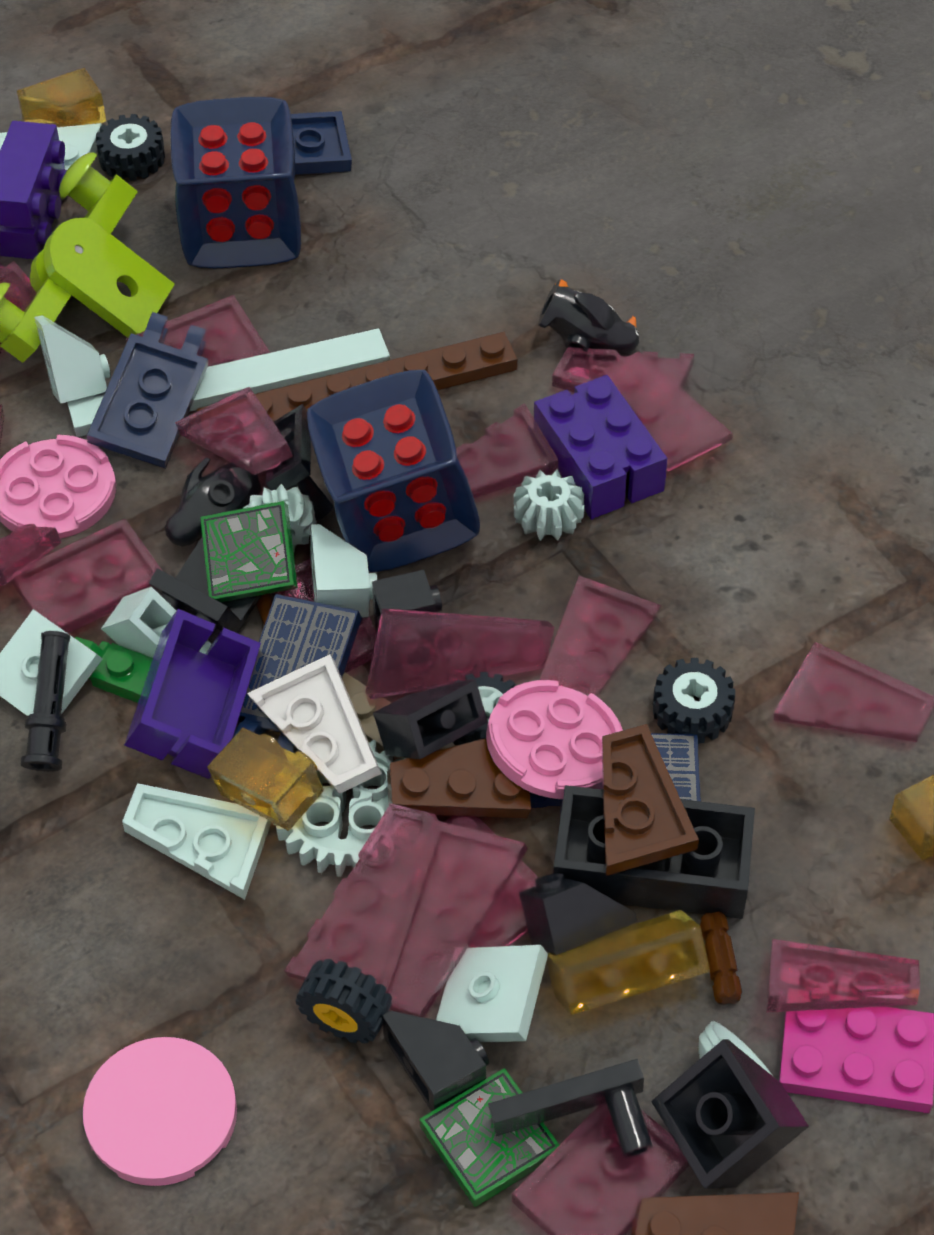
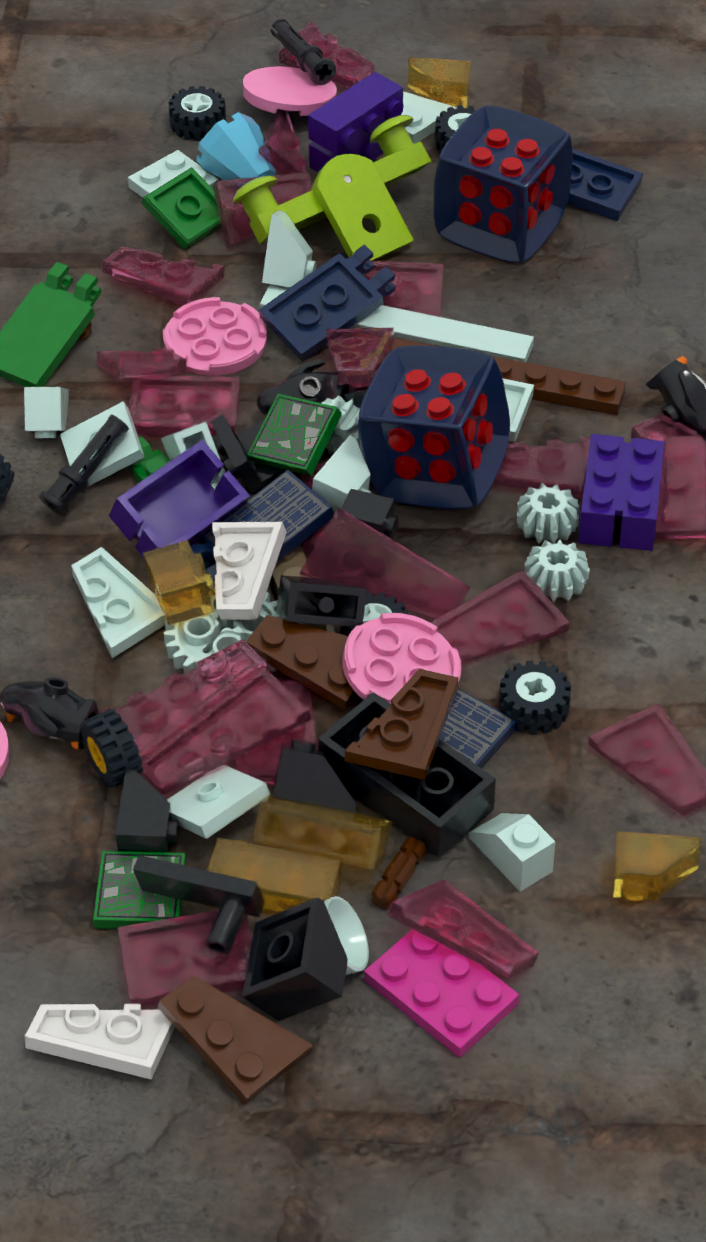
camera: 35 degrees right, 5 degrees down
(238, 997) = (48, 708): none -> black animal
(606, 556) = (558, 569): none -> light aqua gear
(649, 1028) = (282, 875): none -> clear yellow brick
(804, 863) = (516, 847): none -> light aqua slope

